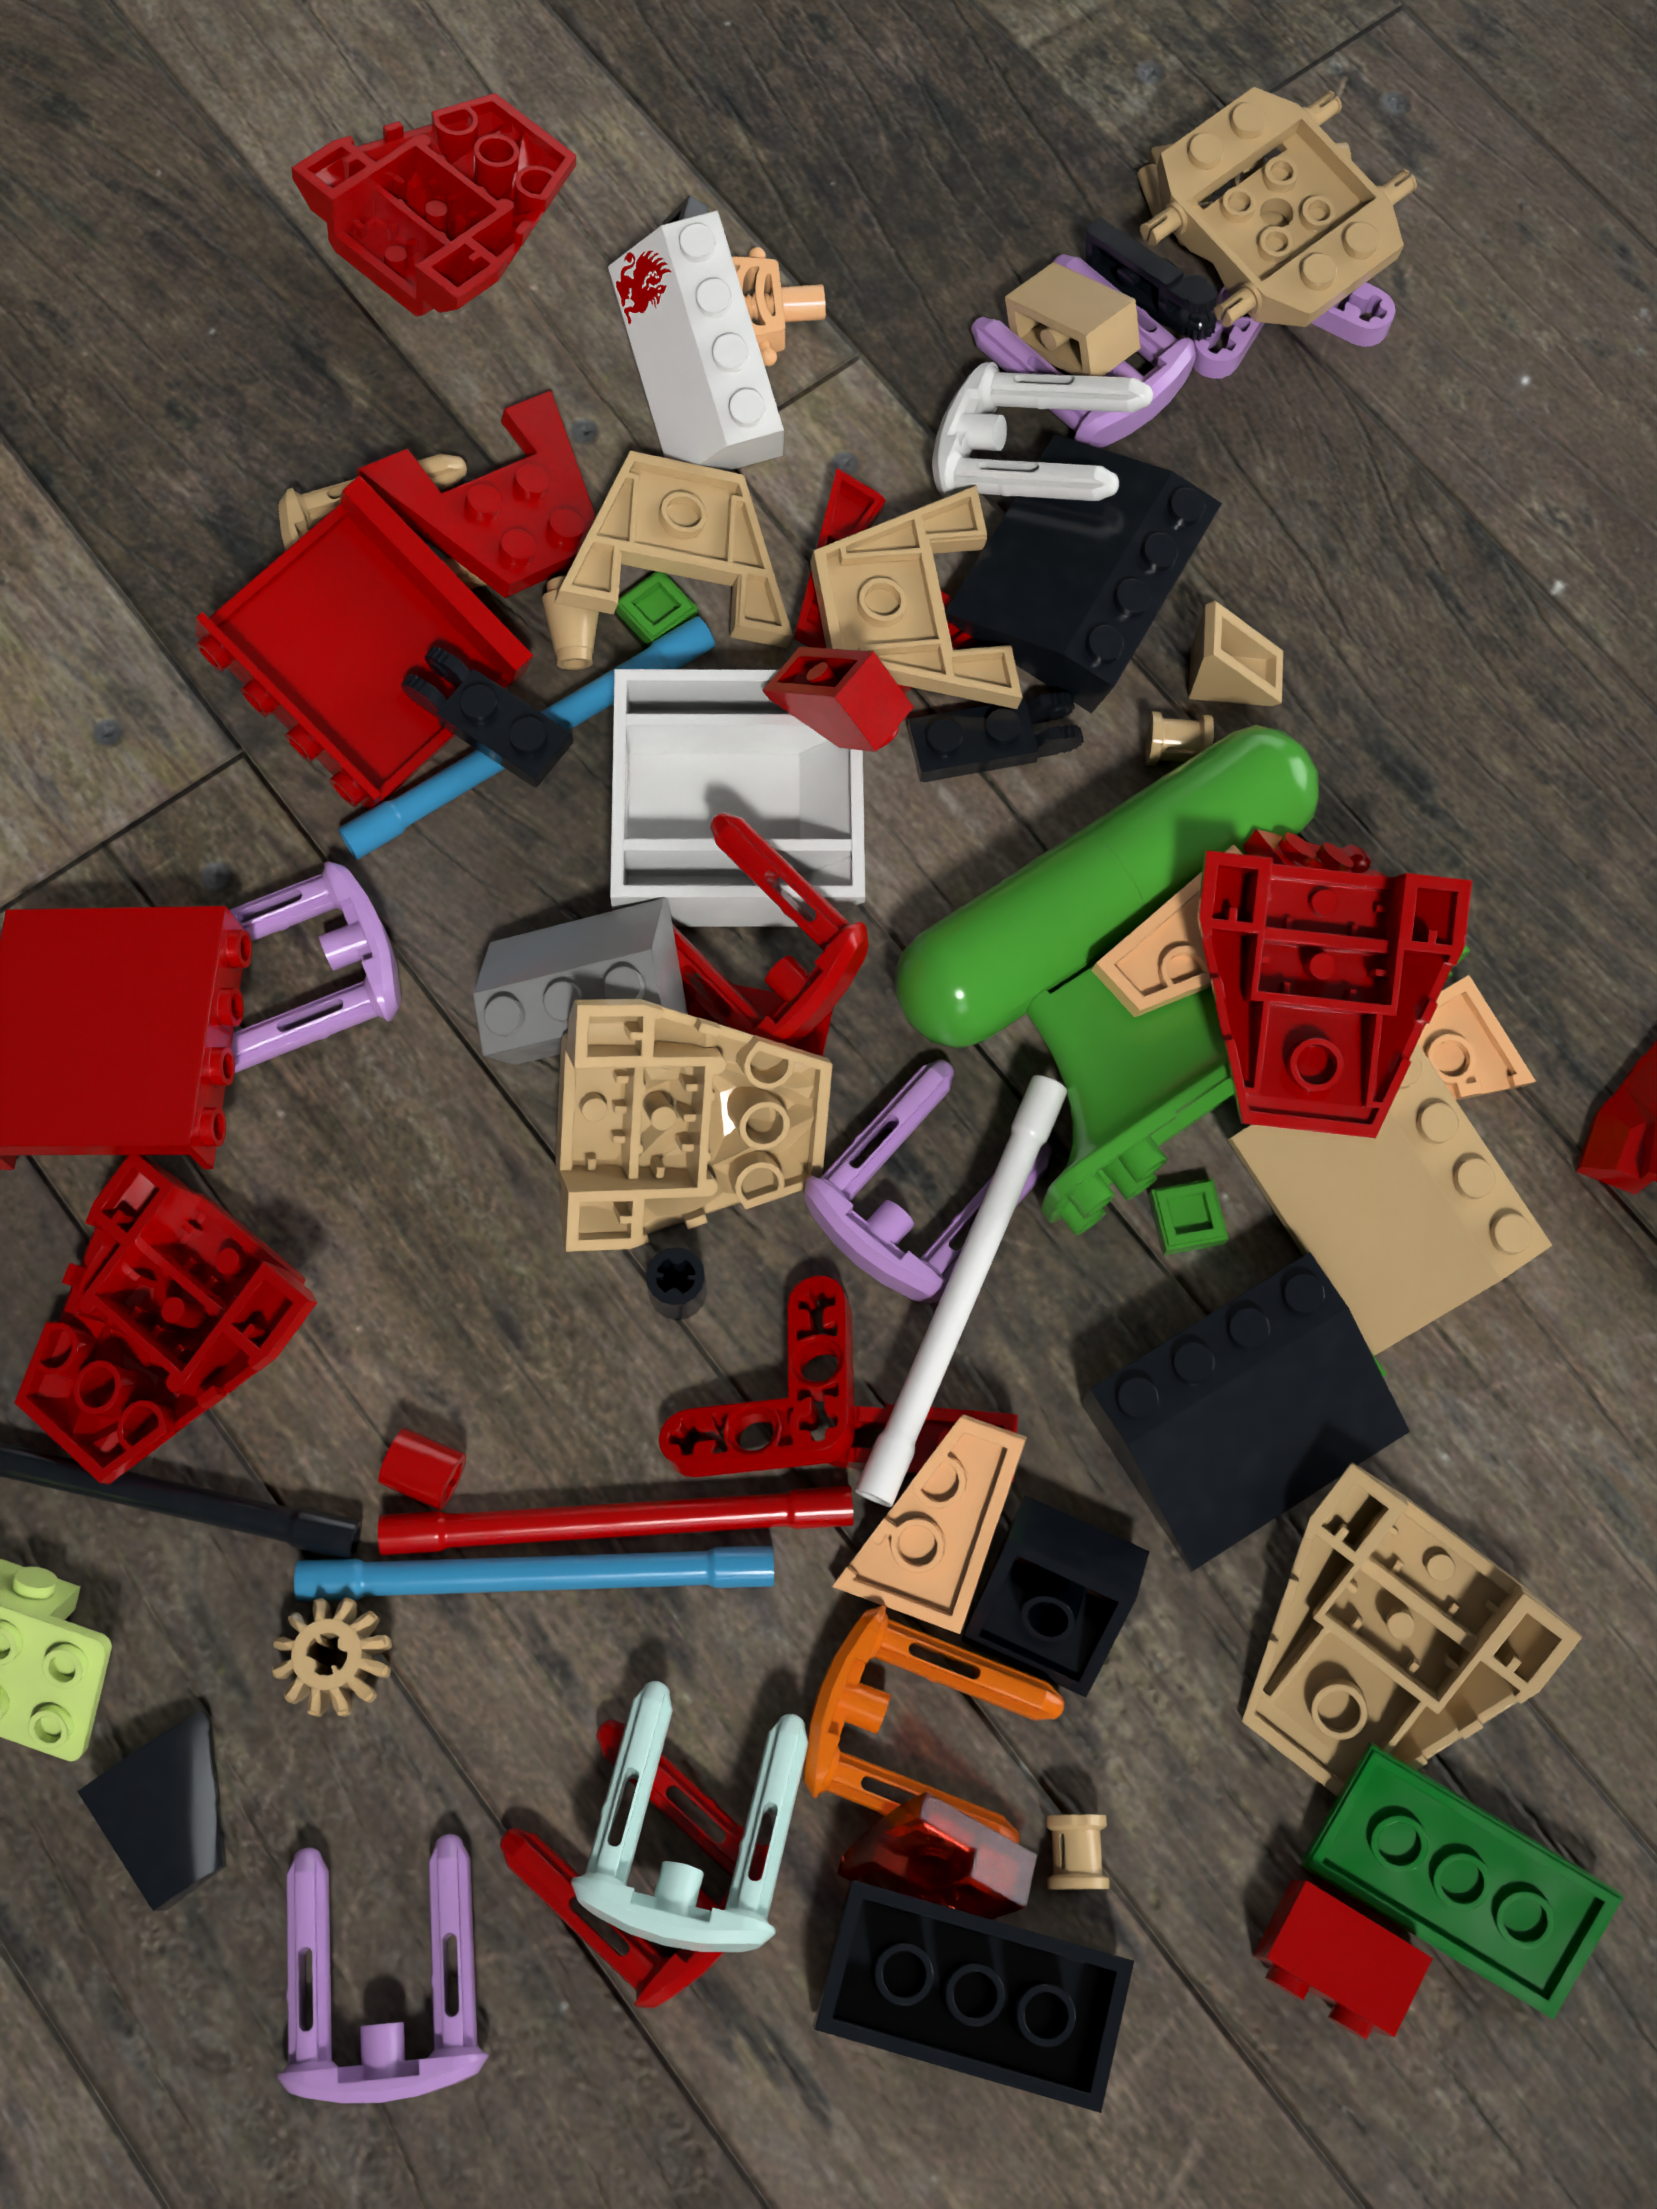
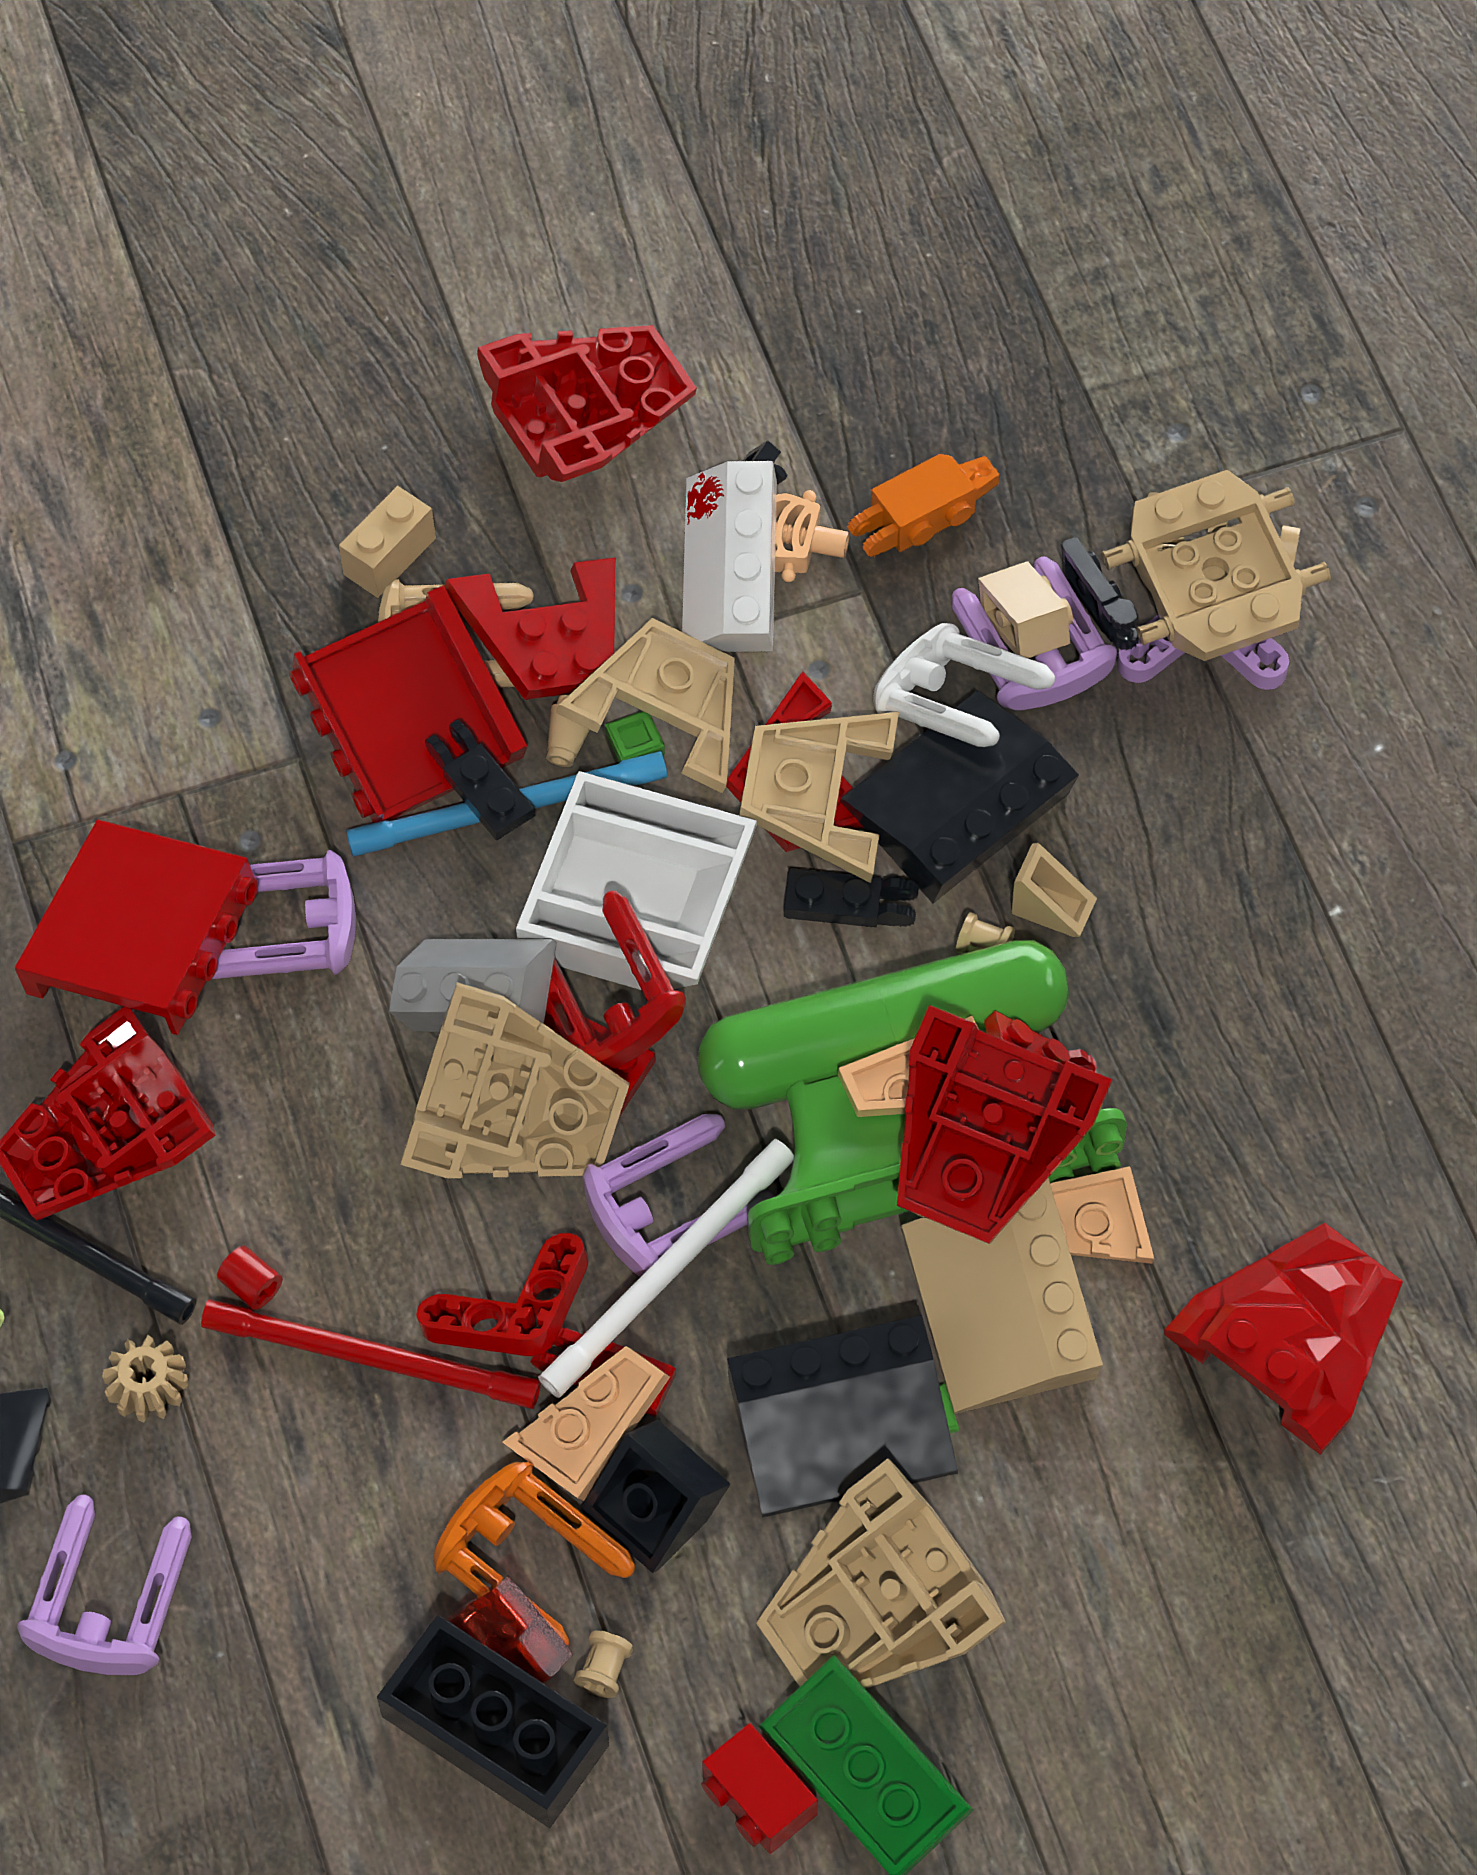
camera: 25 degrees right, 10 degrees down
(259, 444) = (387, 541): none -> tan brick
(357, 1579) = (425, 1405): dark azure piece -> none
(644, 1966) = (334, 1629): red piece -> none
(672, 1912) = (311, 1597): light aqua piece -> none
(679, 1264) = (466, 1194): black gear -> none
(841, 696) = (729, 834): red slope -> none
(897, 226) = (923, 502): none -> orange hinge
(1188, 1217) = (856, 1277): bright green tile -> none

